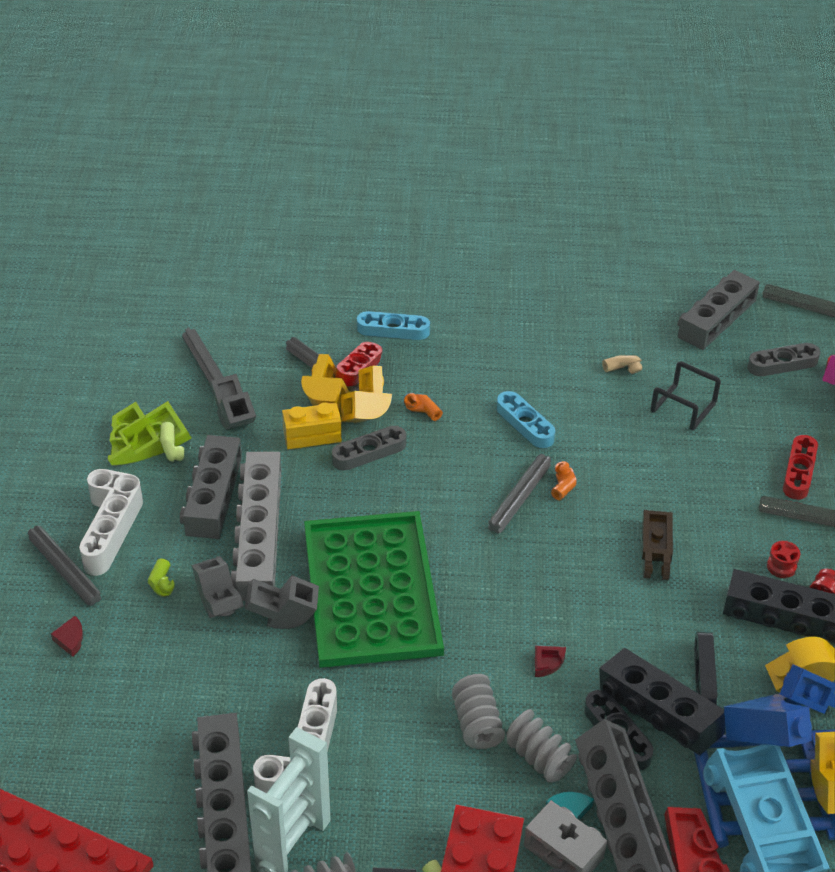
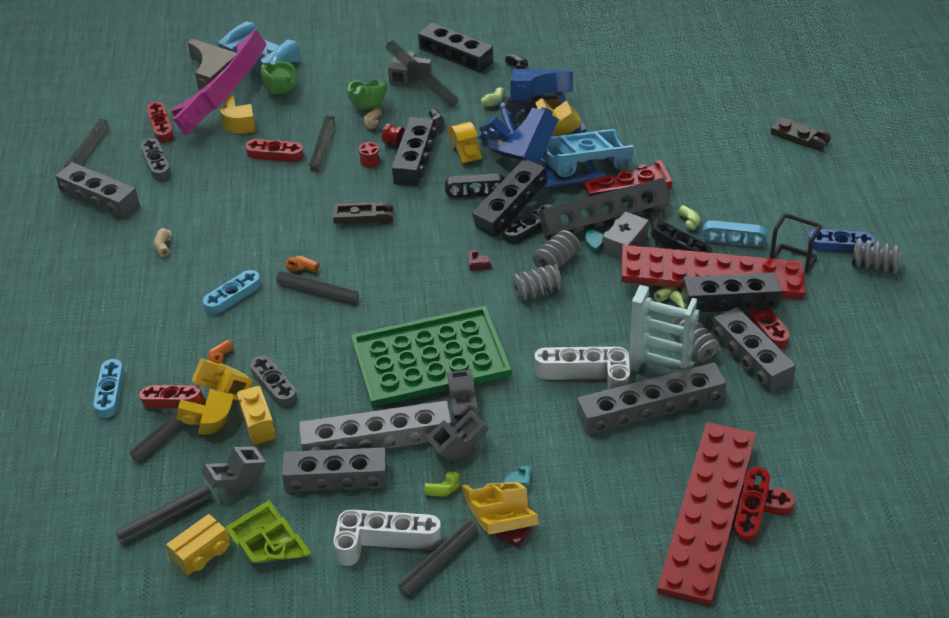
camera: 95 degrees left, 0 degrees up
(103, 622) = (500, 506): none -> yellow slope
(147, 653) = (522, 476): none -> teal tile
(151, 381) = (198, 545): none -> yellow brick
(167, 439) = (288, 511): yellowish green arm -> none
(668, 394) = (217, 200): black piece -> none

